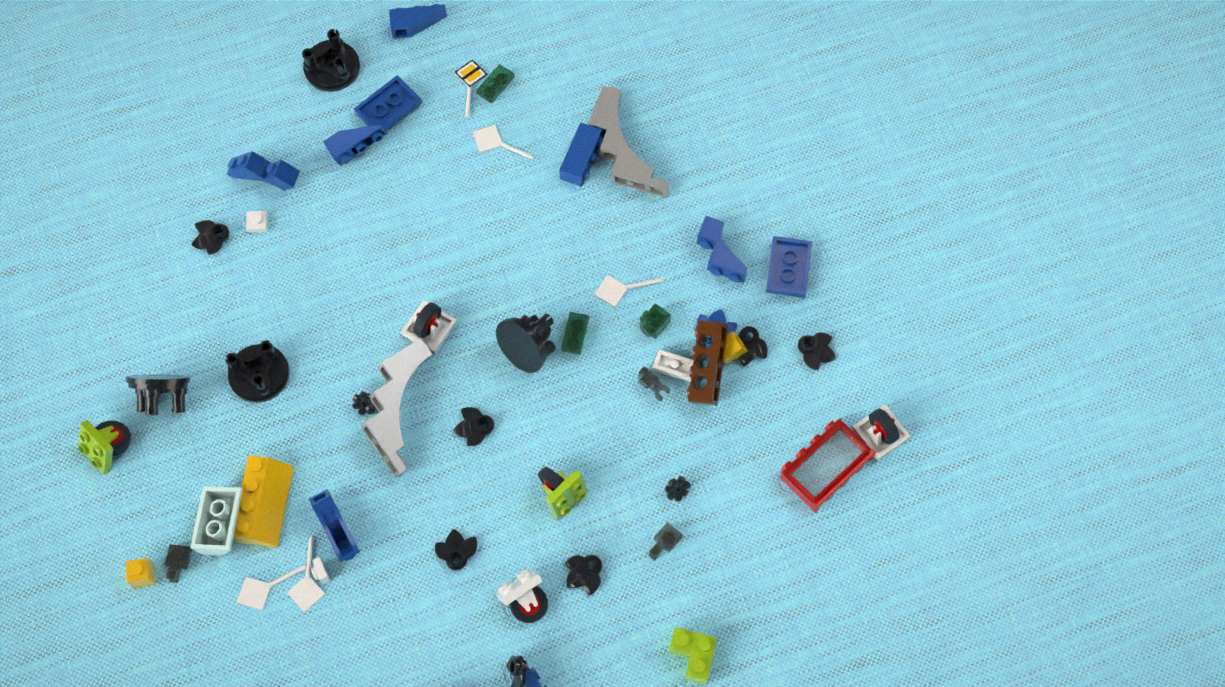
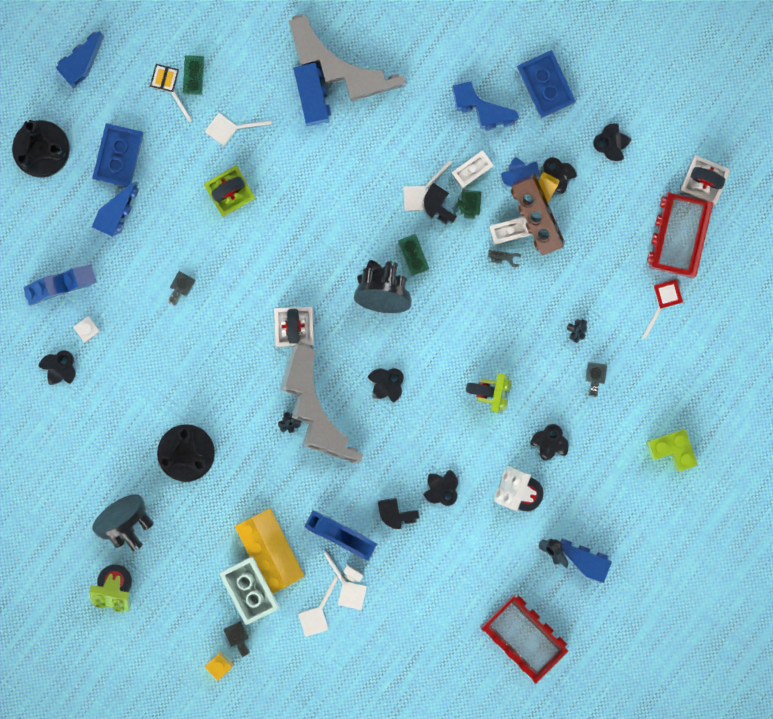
camera: 35 degrees left, 20 degrees up
(359, 236) = (181, 285): none -> clear smoke plate
(393, 542) = (390, 514): none -> black brick
(457, 187) = (229, 191): none -> lime plate
(622, 301) = (432, 204): none -> black brick
(676, 295) = (472, 169): none -> white plate
(780, 512) = (667, 295): none -> piece

